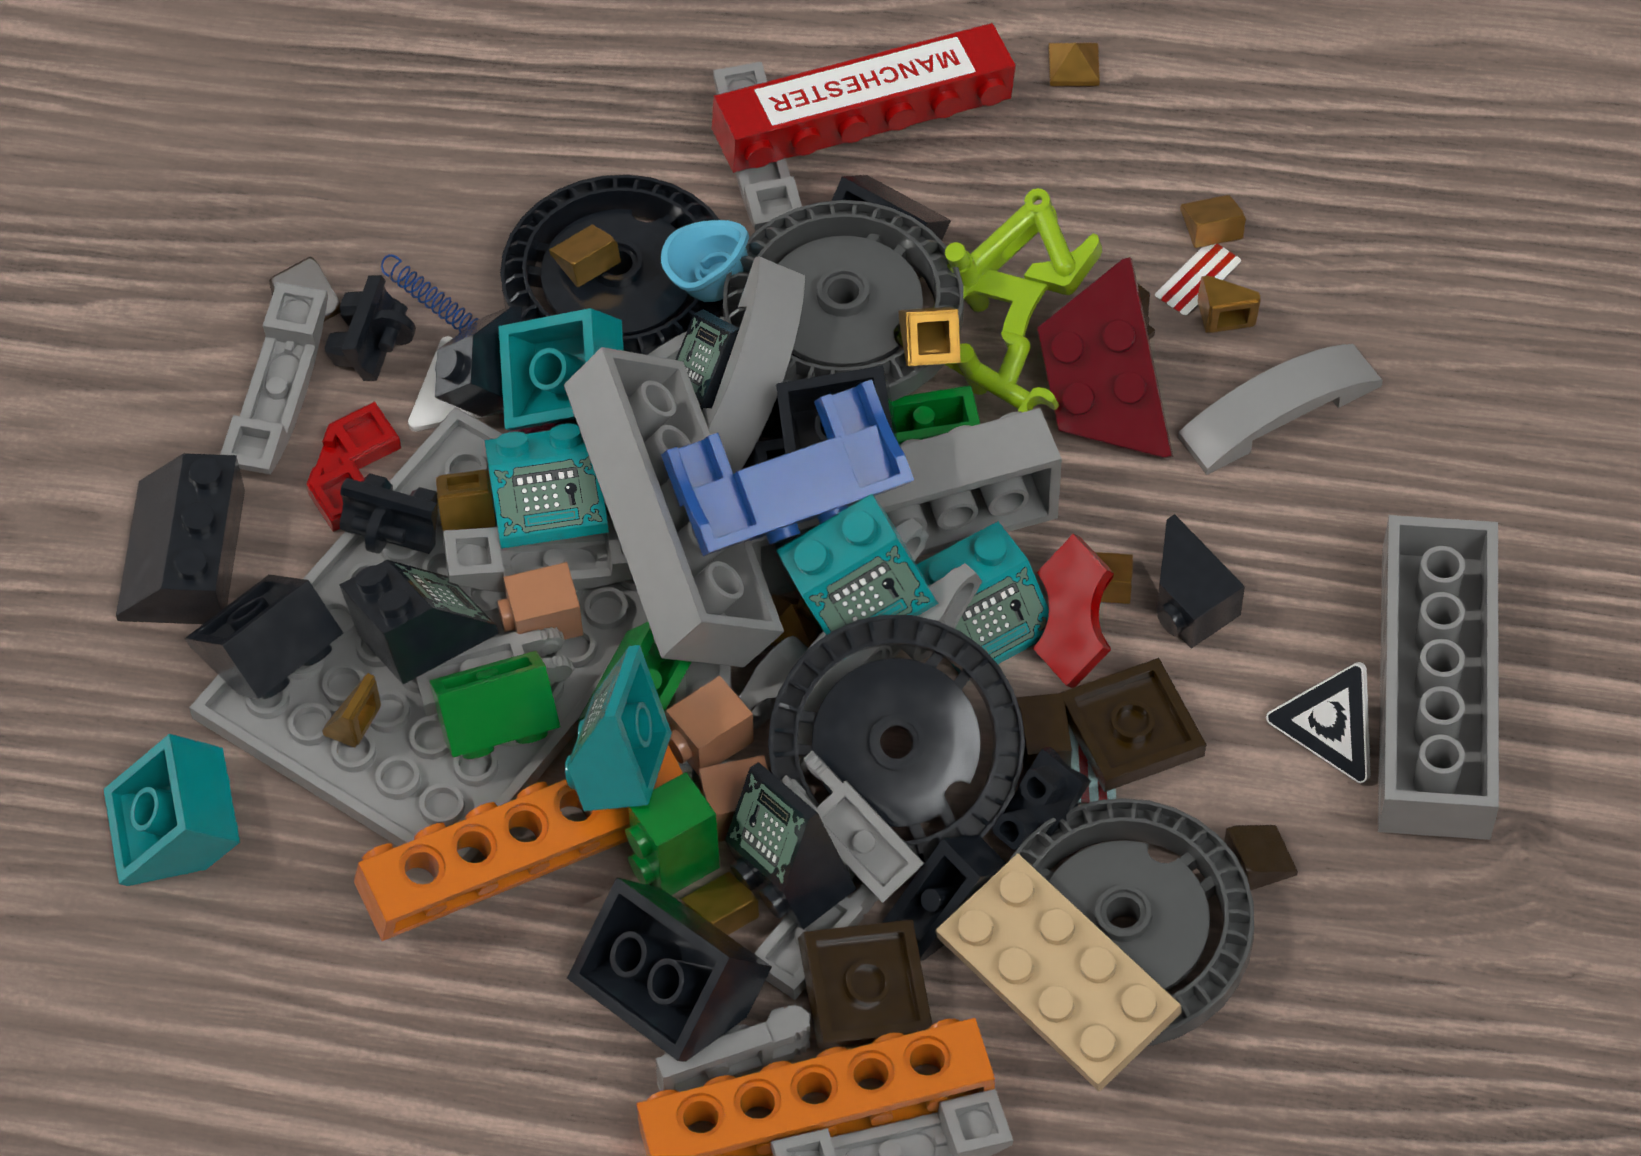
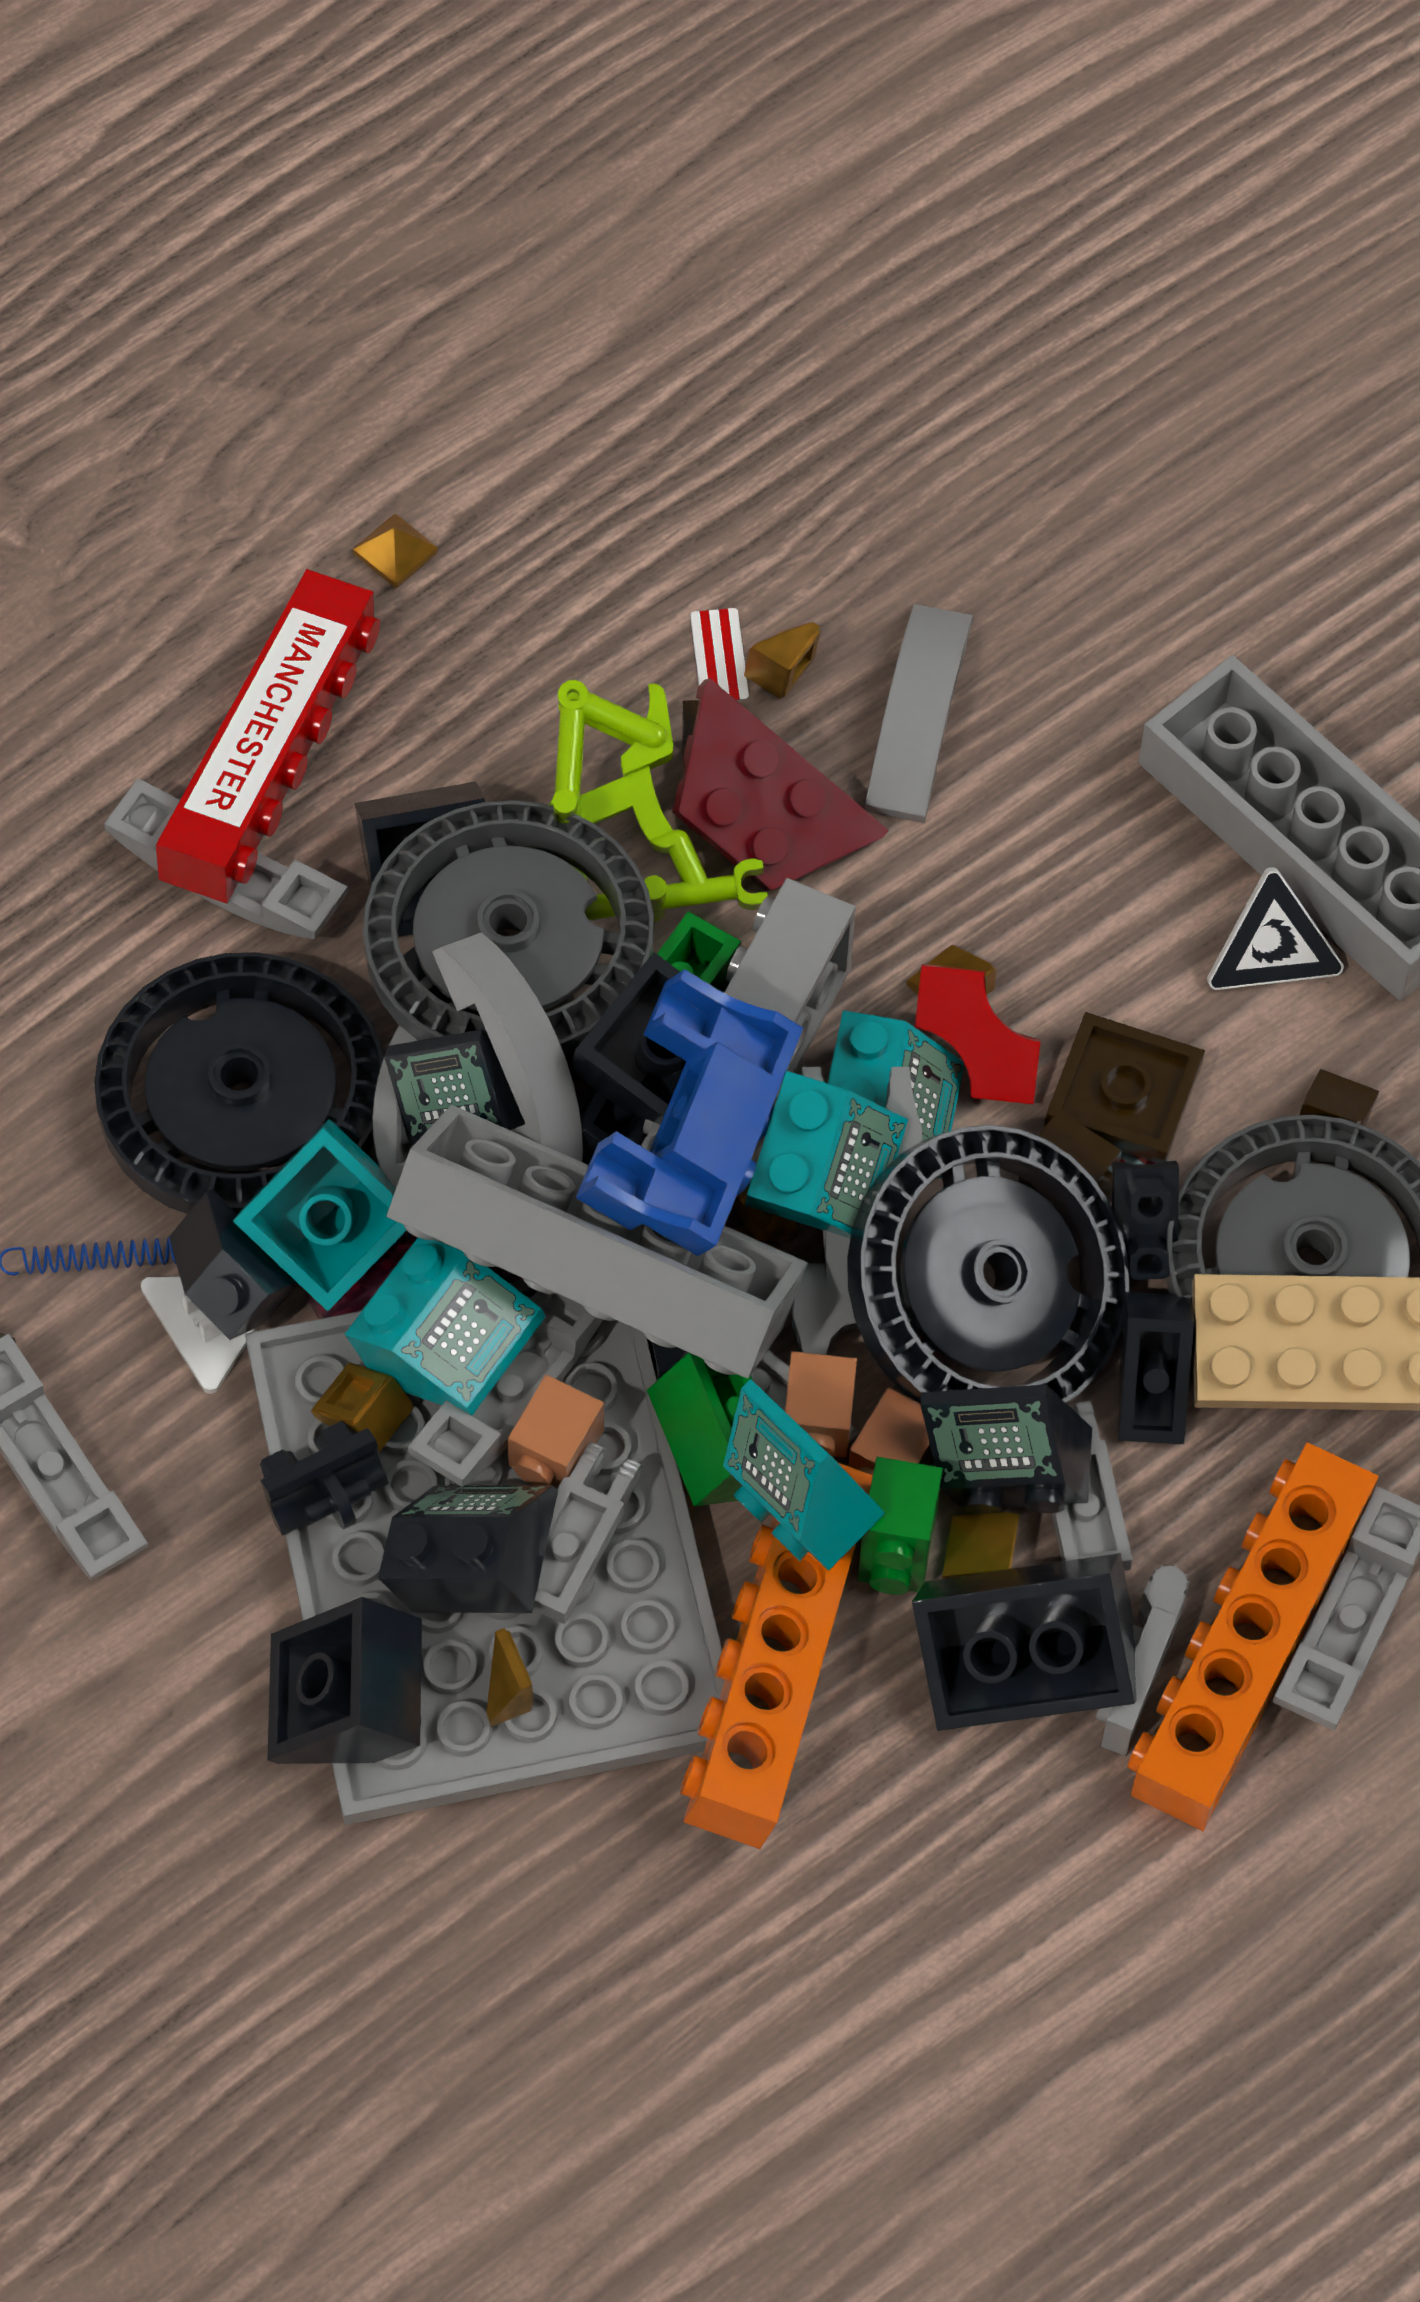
camera: 50 degrees left, 5 degrees up
(171, 812) = (439, 1922): teal slope -> none
(182, 541) = (144, 1681): black slope -> none
(346, 448) = (206, 1499): red tile -> none
(375, 327) = (59, 1314): black hips -> none
(495, 705) = (629, 1554): green brick -> none
(586, 254) = (211, 1088): pearl gold slope -> none
(703, 255) = (333, 996): medium azure helmet -> none
(859, 833) = (1083, 1378): light grey hinge -> none
(864, 982) = (1183, 1499): dark brown plate -> none
(930, 336) = (633, 892): pearl gold slope -> none
(1195, 587) = (1033, 926): black slope -> none
(1213, 221) = (678, 591): pearl gold slope -> none

